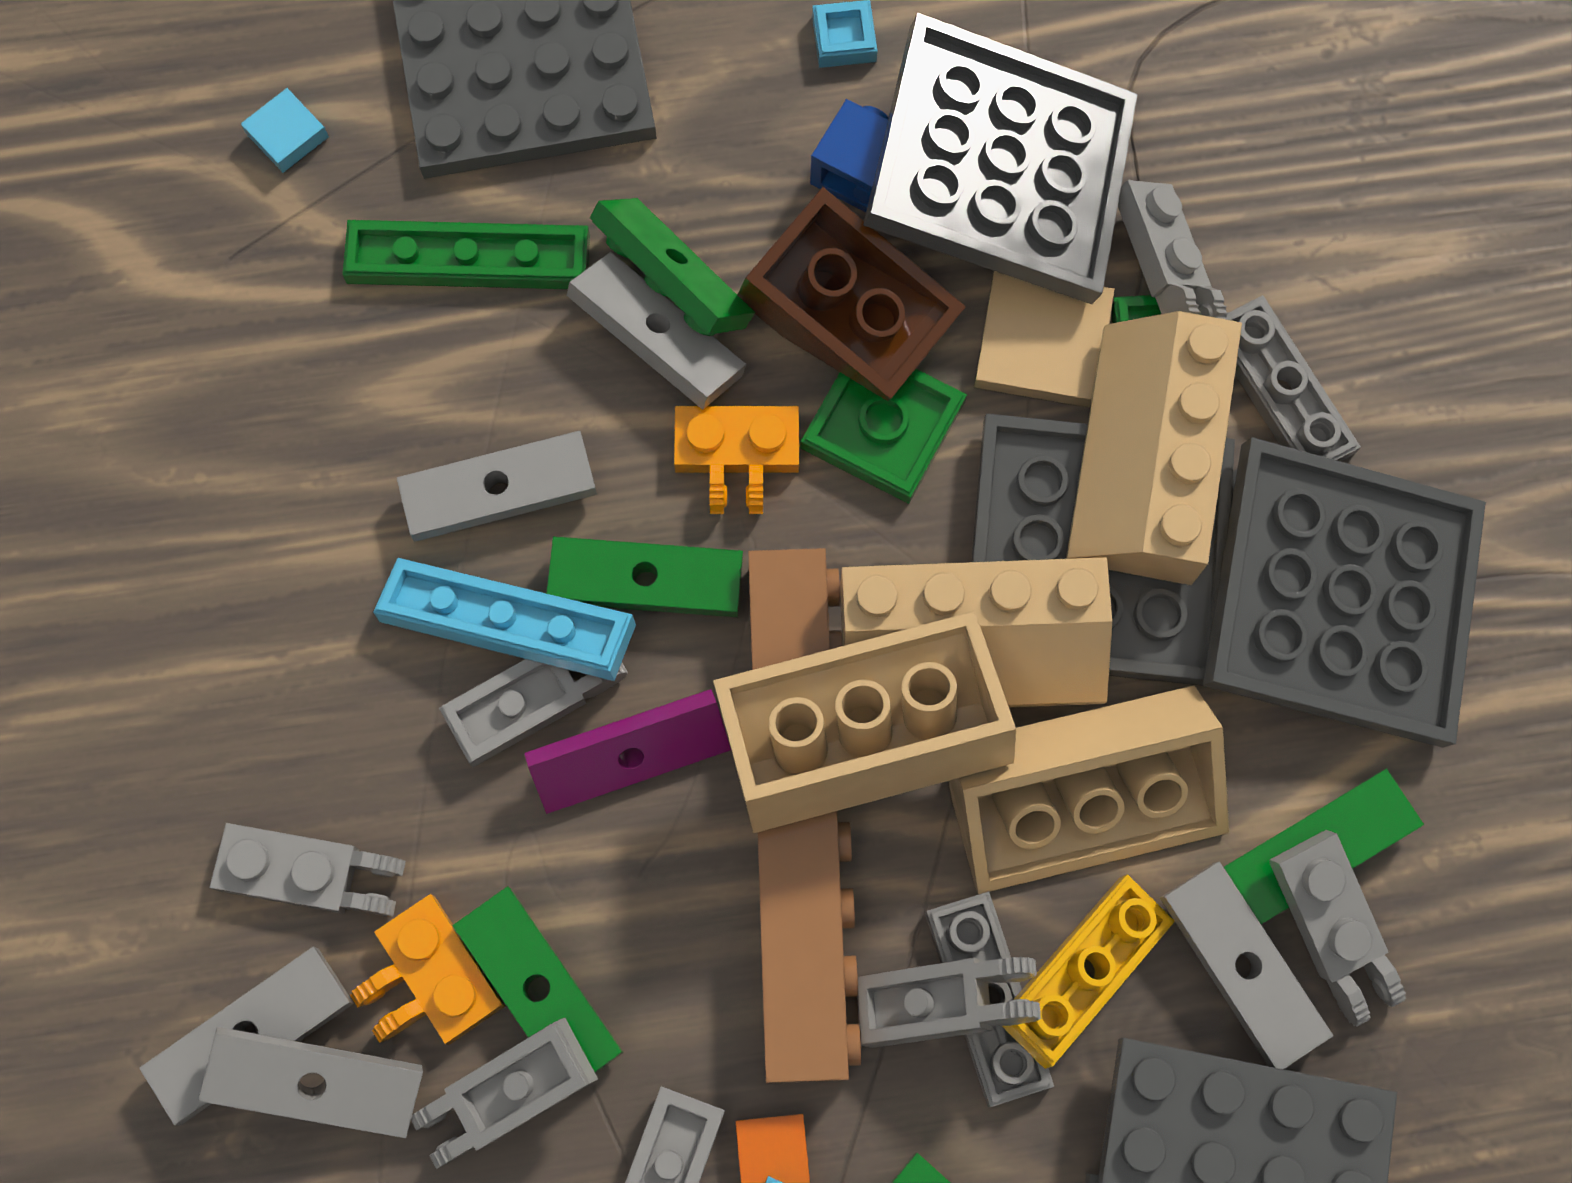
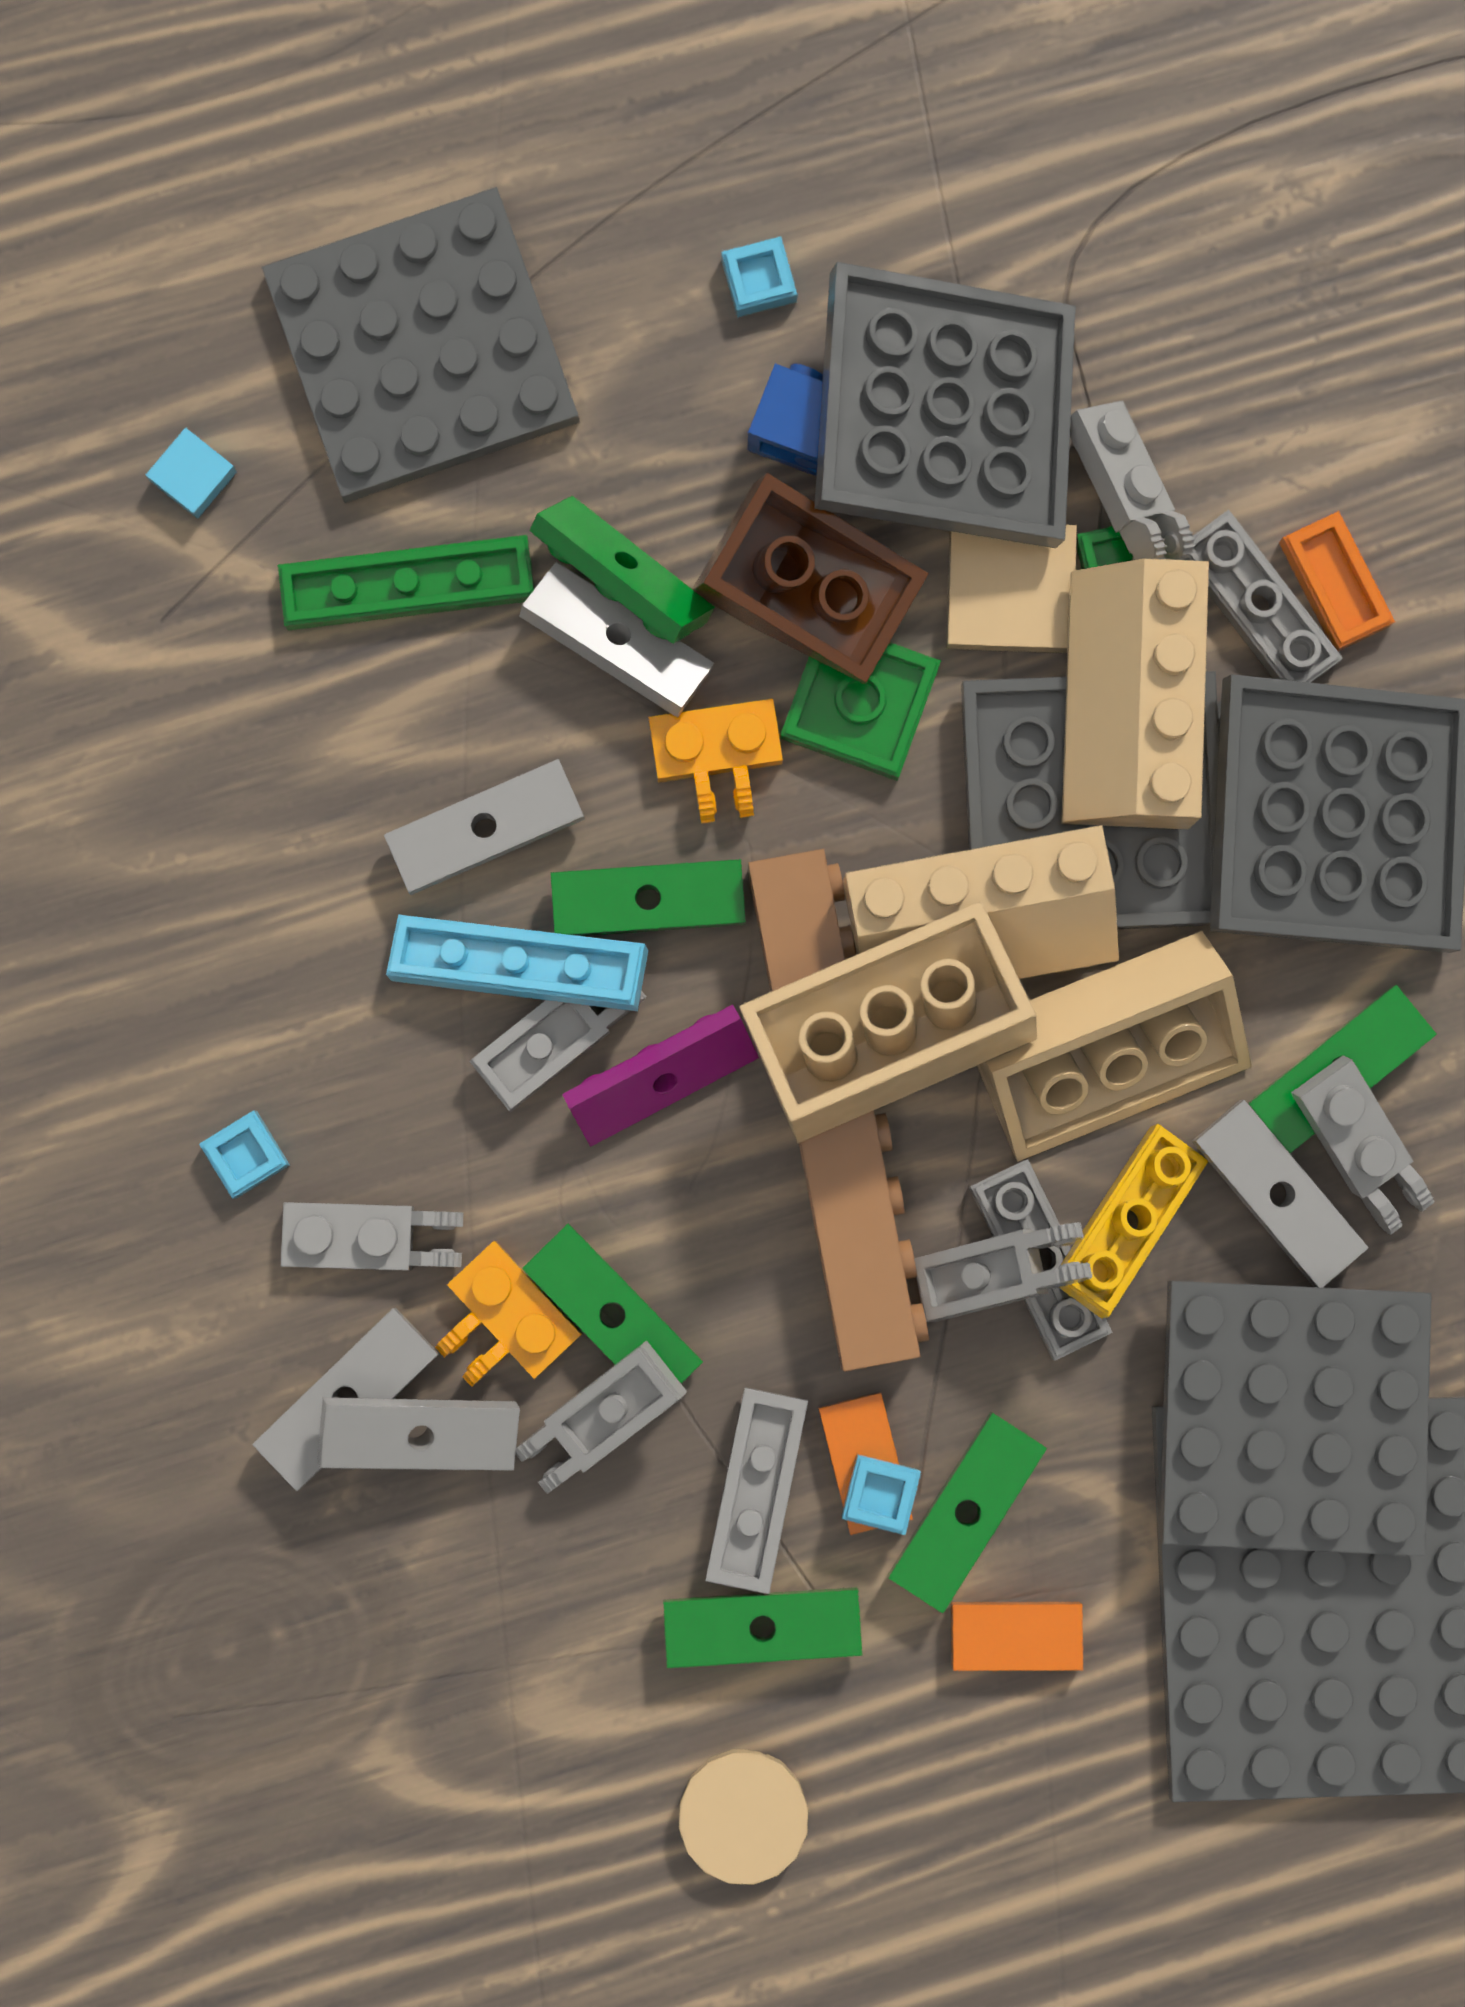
camera: 10 degrees left, 10 degrees up
(199, 770) = (244, 1154): none -> medium azure tile
(1361, 377) = (1336, 581): none -> orange tile

